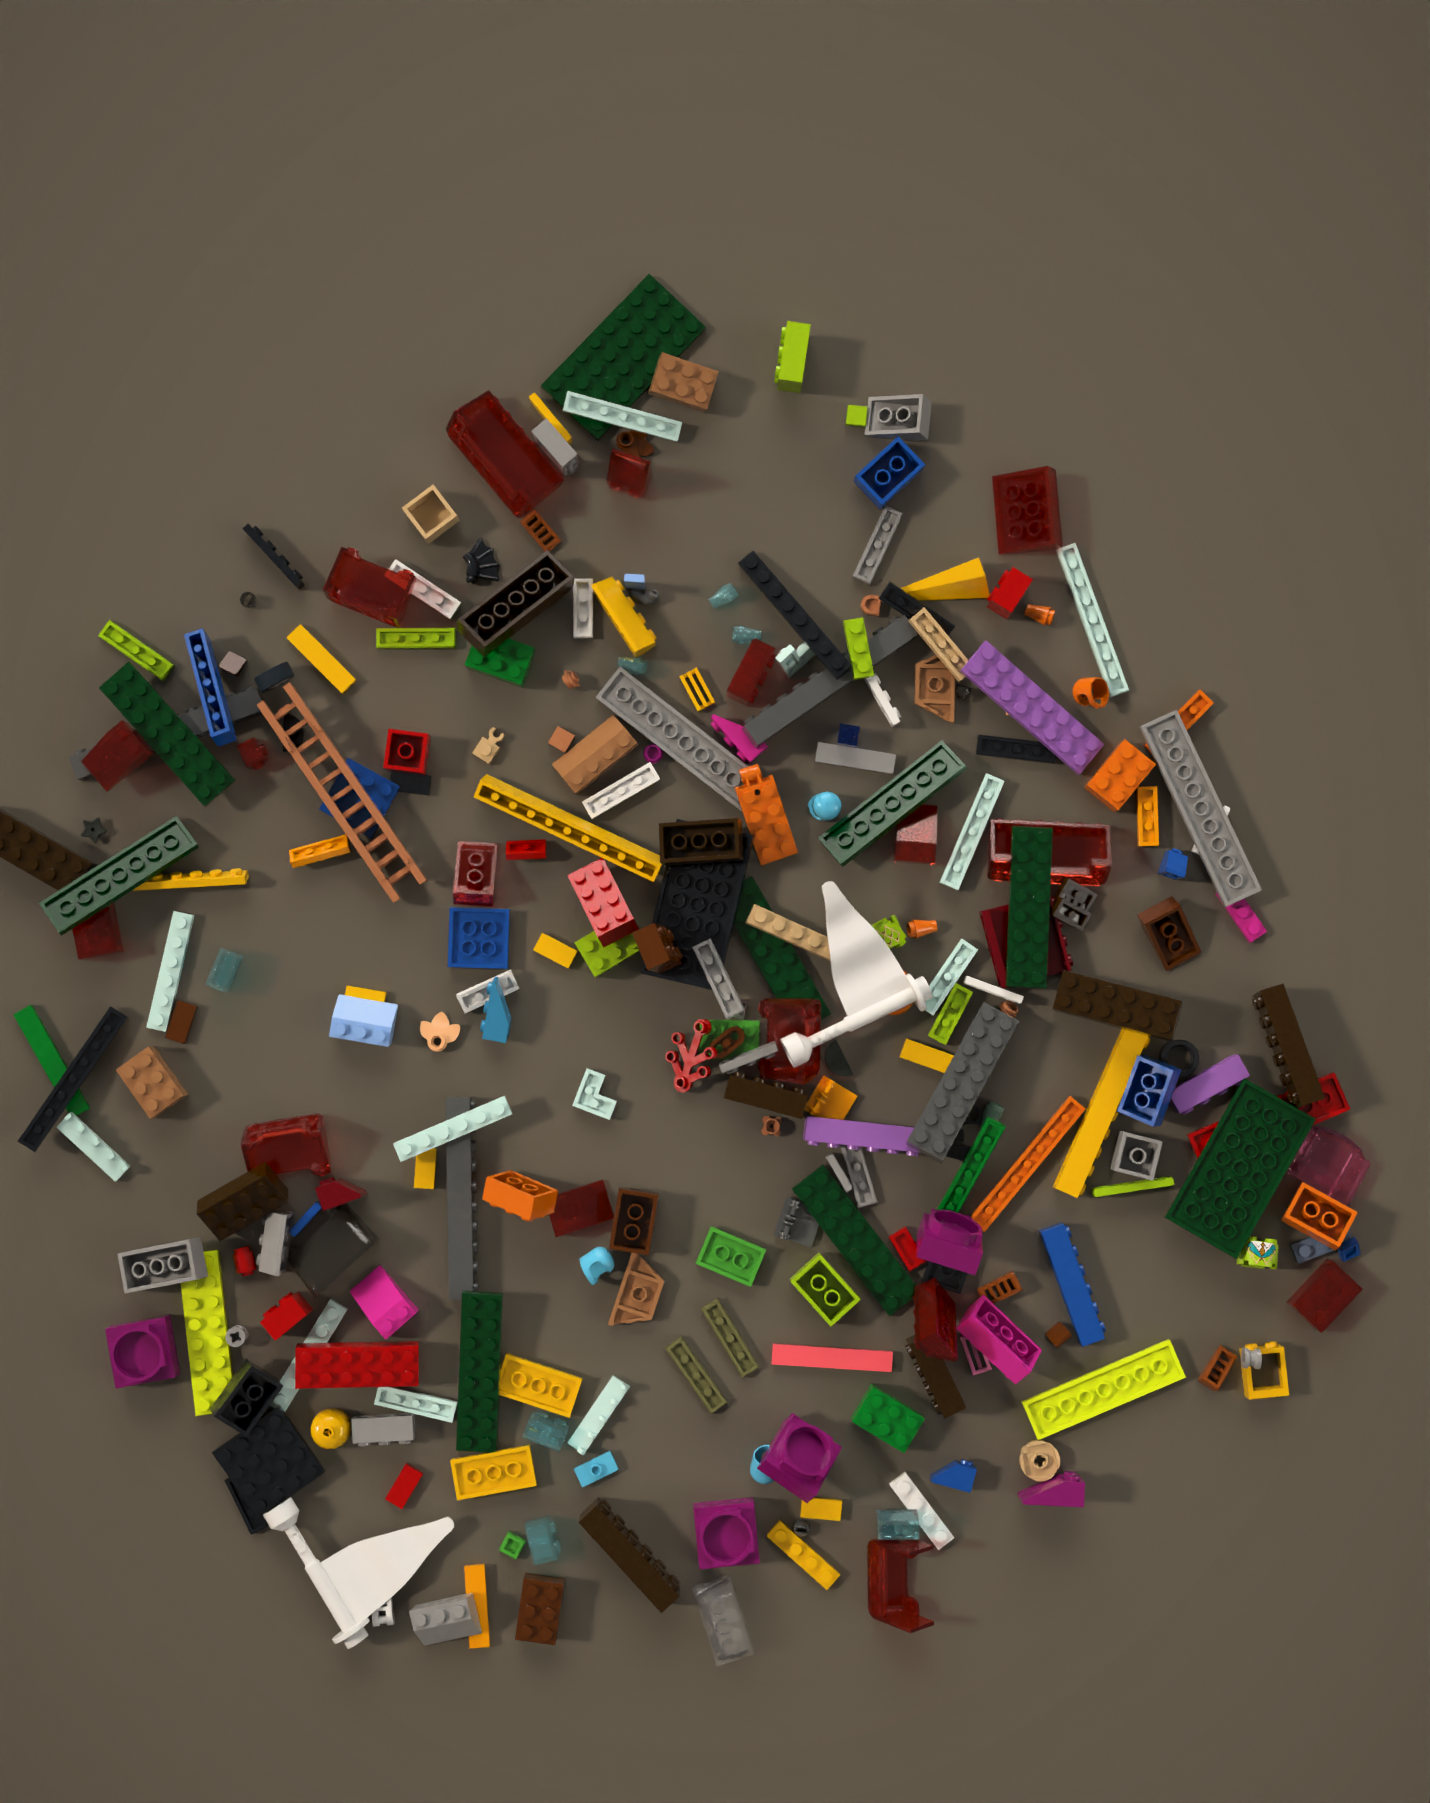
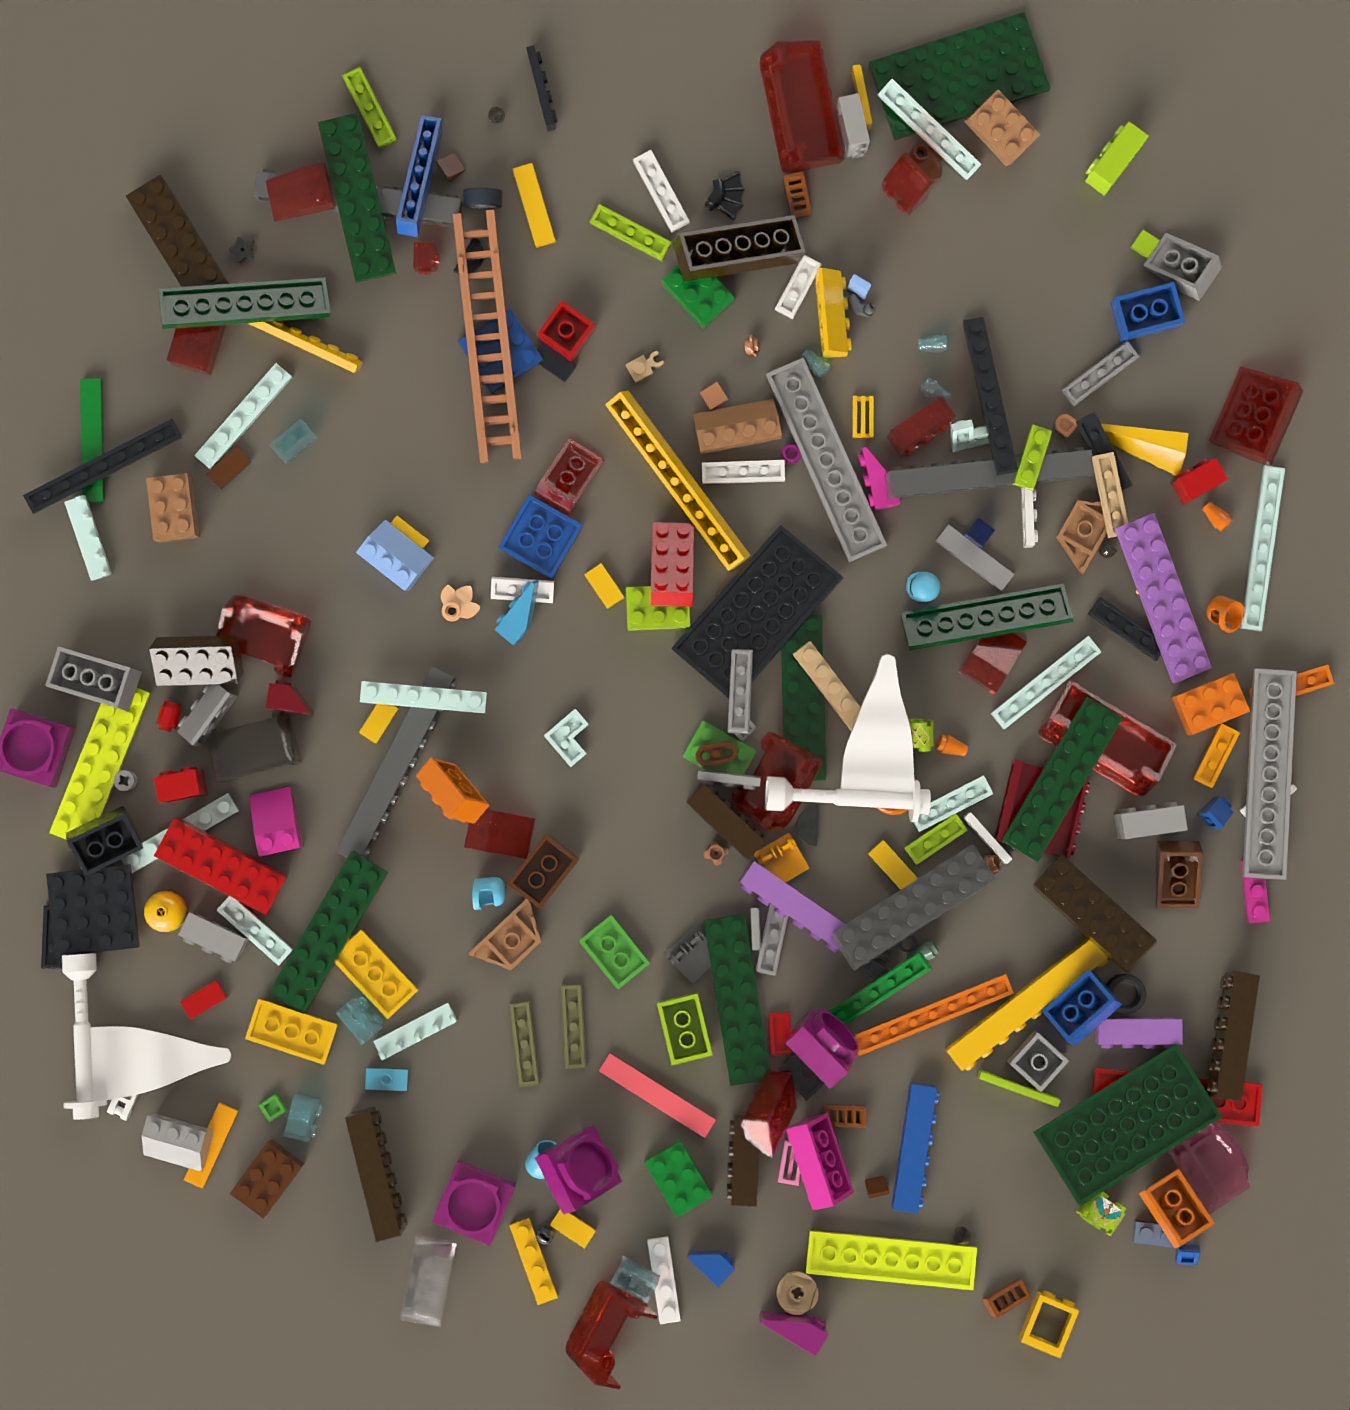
camera: 30 degrees right, 0 degrees up
(306, 1219) = (245, 708): blue tile -> none
(319, 851) = (438, 379): light orange plate -> none
(369, 588) = (612, 163): clear red windscreen -> none
(430, 514) = (705, 125): tan piece -> none
(526, 849) = (627, 479): red plate -> none
(657, 948) = (700, 632): reddish brown brick -> none
(690, 1058) = (675, 750): red plant -> none
(701, 841) = (792, 557): dark brown brick -> none
(765, 816) = (863, 565): orange hinge -> none
(1073, 903) = (1104, 798): dark brown slope -> none
(1122, 901) = (1150, 820): none -> light grey brick
(1150, 1335) = (962, 1234): none -> clear smoke hinge
(1251, 1358) = (1043, 1304): light grey wheel -> none
(1324, 1295) = (1142, 1284): clear red brick -> none

